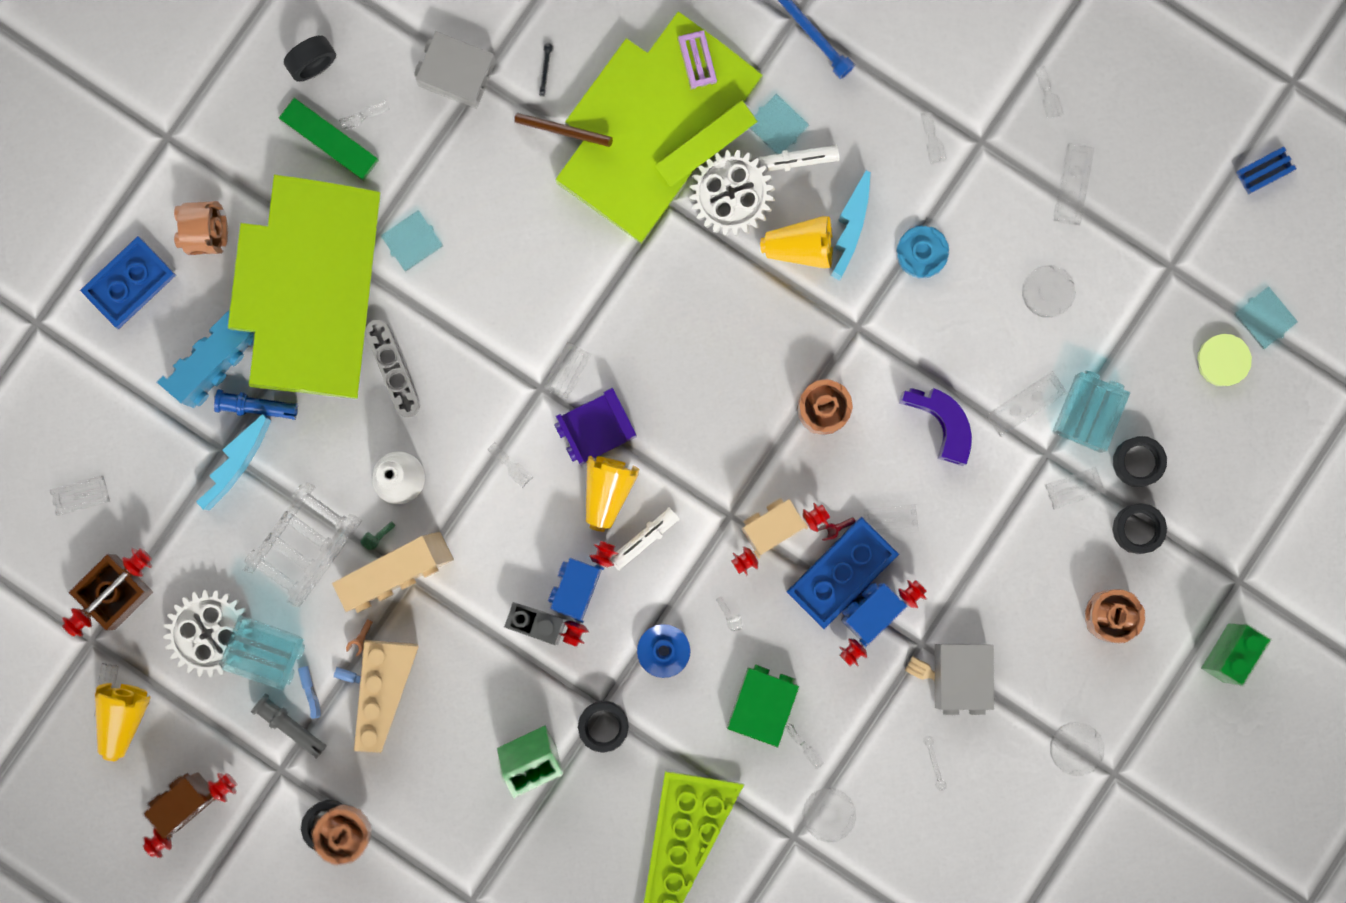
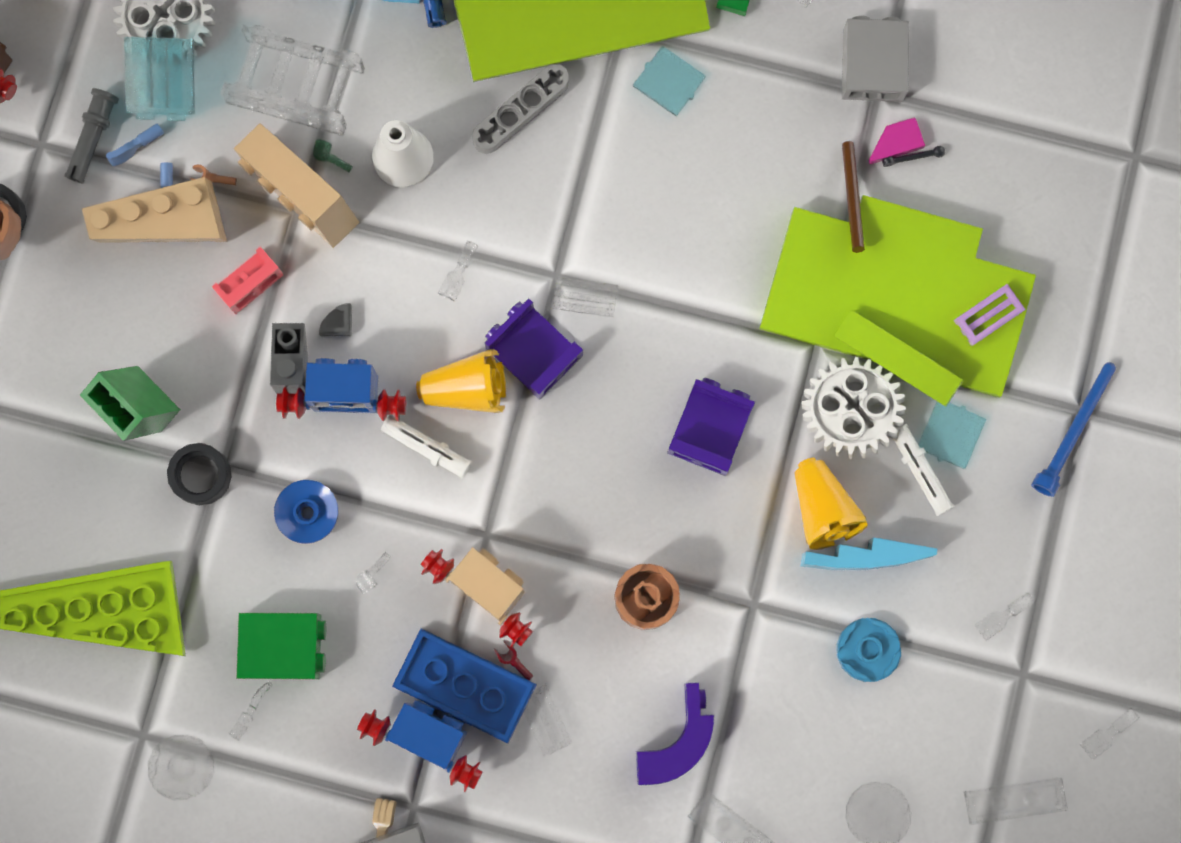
camera: 70 degrees right, 5 degrees down
(457, 637) = (248, 281): none -> coral hinge
(517, 576) = (338, 322): none -> dark grey tile
(527, 77) = (898, 140): none -> dark pink tile
(707, 309) = (711, 426): none -> dark purple panel

